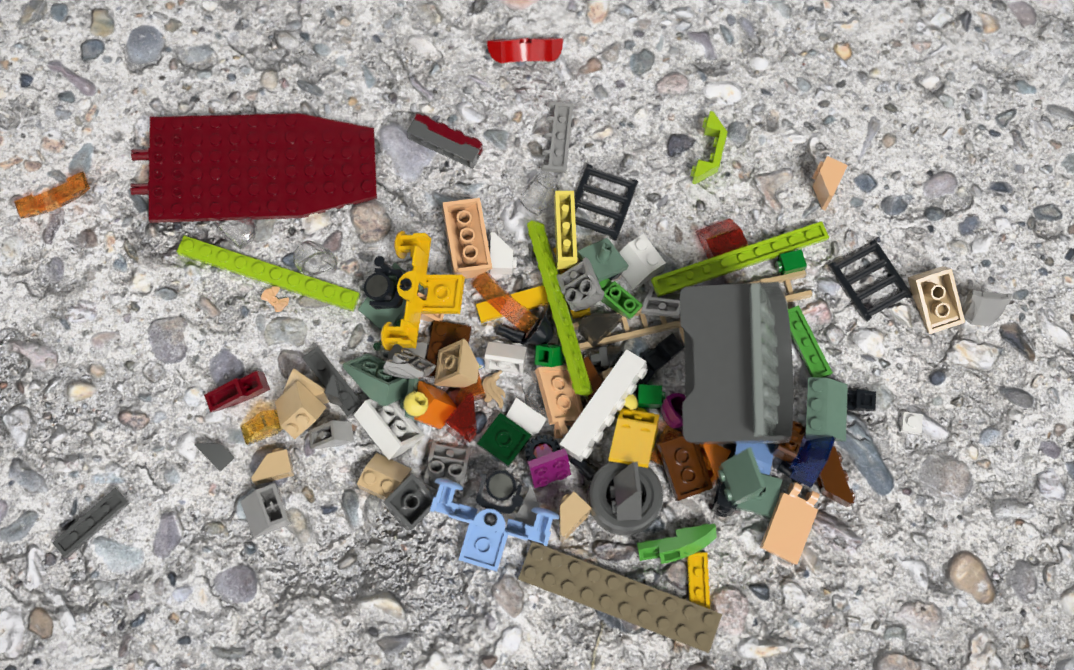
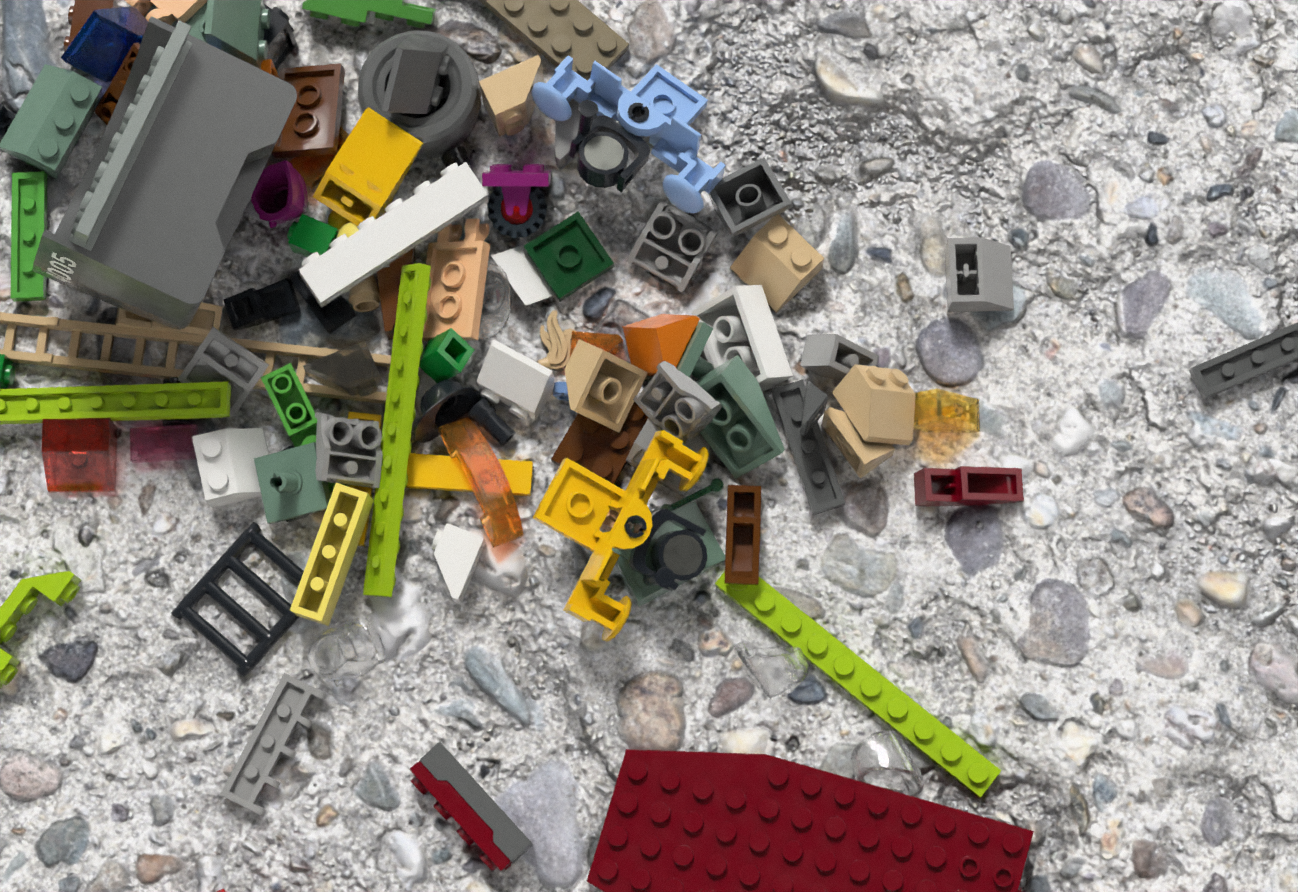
camera: 155 degrees left, 5 degrees up
(216, 454) = (1032, 398): dark grey slope -> none
(269, 295) = (866, 633): light nougat piece -> none
(274, 467) = (944, 340): tan slope -> none
(352, 321) = (742, 535): none -> reddish brown slope
(415, 403) = (689, 328): light yellow piece -> none
(462, 421) = (622, 297): clear red slope -> none
(466, 237) = (502, 605): light nougat slope -> none
(600, 359) = (365, 326): dark grey tile -> none
(682, 260) = (162, 443): none -> clear pink plate

